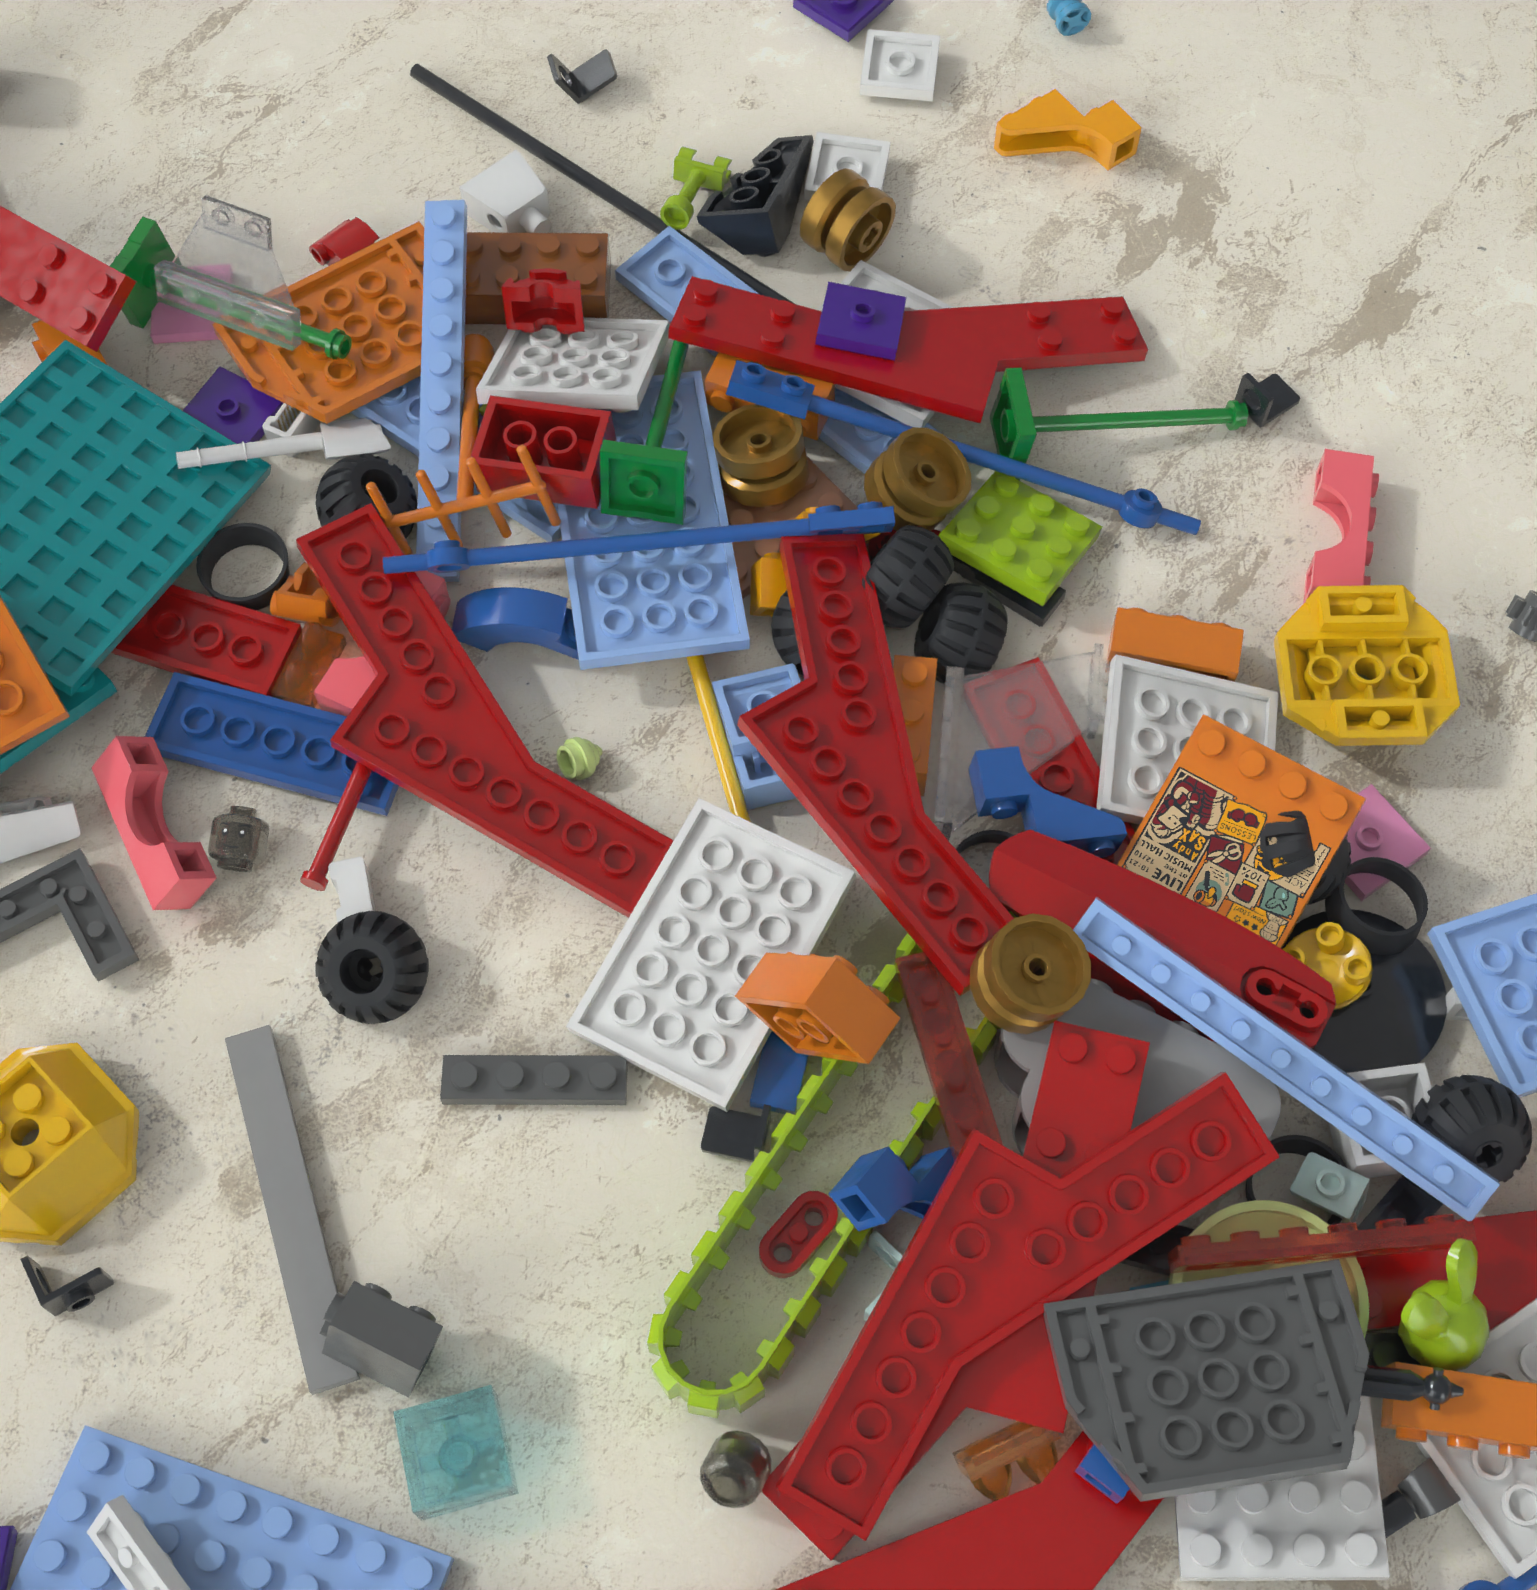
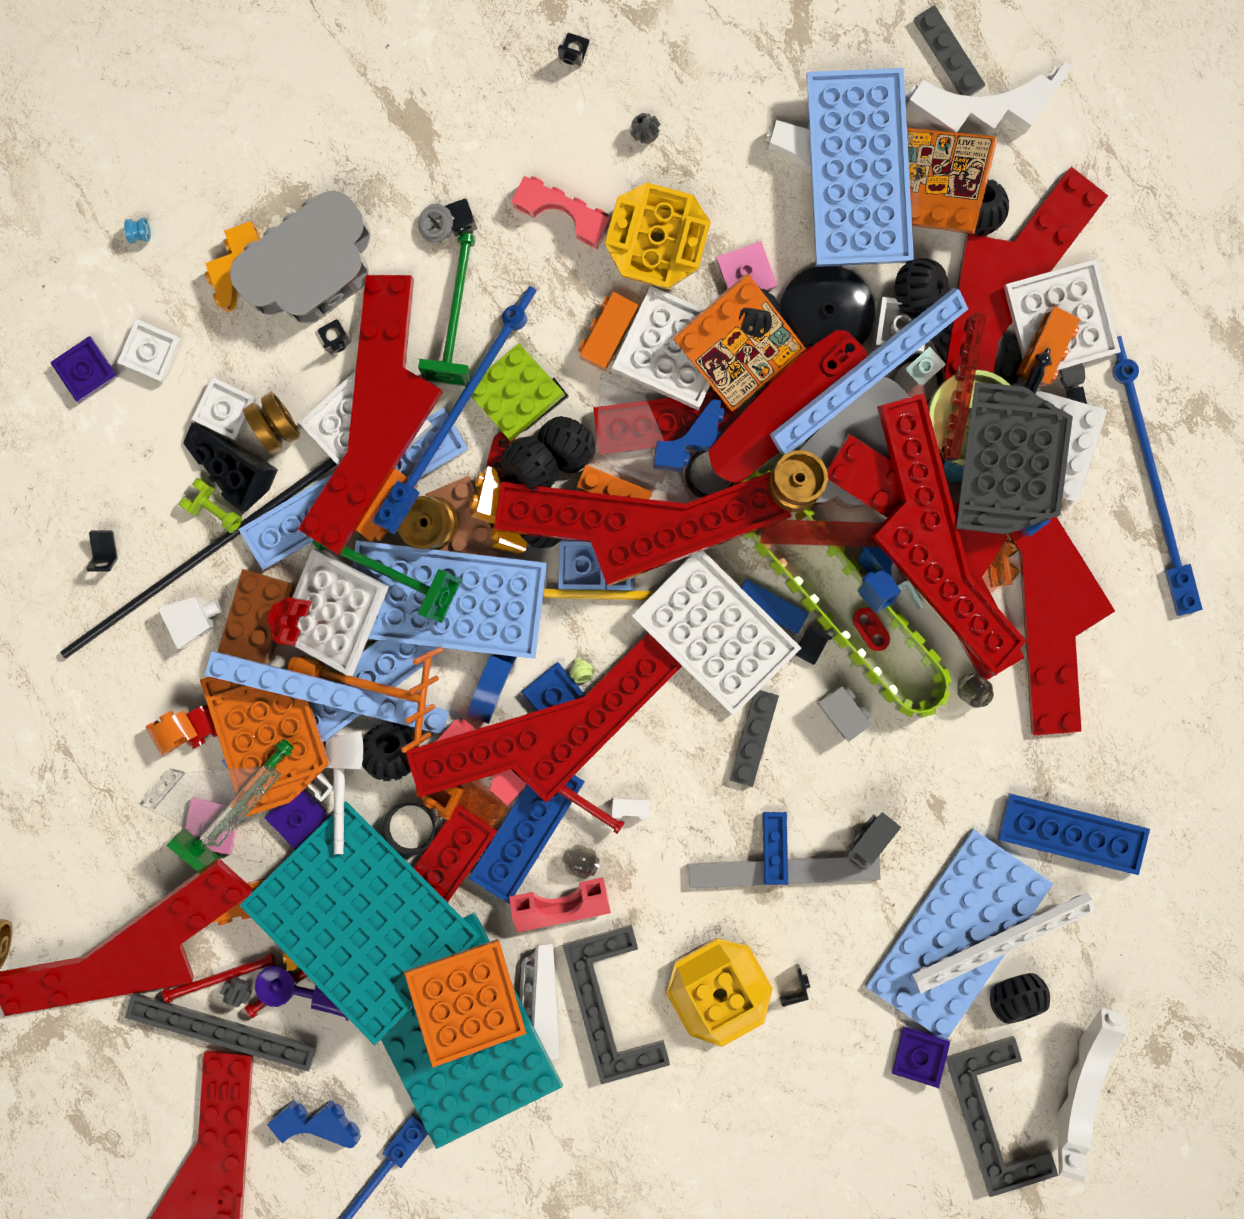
camera: 70 degrees left, 25 degrees up
(327, 208) = (171, 731): none -> orange cylinder
(330, 1170) = (775, 848): none -> blue tile
(345, 967) = (674, 806): black wheel -> none
(455, 1452) = (930, 817): clear light blue container -> none
(540, 720) = (552, 689): none -> blue tile
(560, 442) = (398, 642): red brick -> none
(623, 1223) = (844, 712): none -> light grey brick
(819, 1006) = (776, 589): orange brick -> none
(827, 520) = (492, 501): blue bar -> none
(861, 320) = (358, 439): dark purple plate -> none
(920, 477) = (474, 440): pearl gold wheel -> none
(1002, 280) = (338, 344): none -> black bracket
(1114, 208) = (306, 261): none -> light grey brick
(1229, 364) = (426, 223): none -> light grey gear
(1335, 957) = (815, 322): yellow dish -> none
(1376, 940) = (803, 301): black tyre -> none
(1444, 1318) = (1009, 341): lime piece -> none

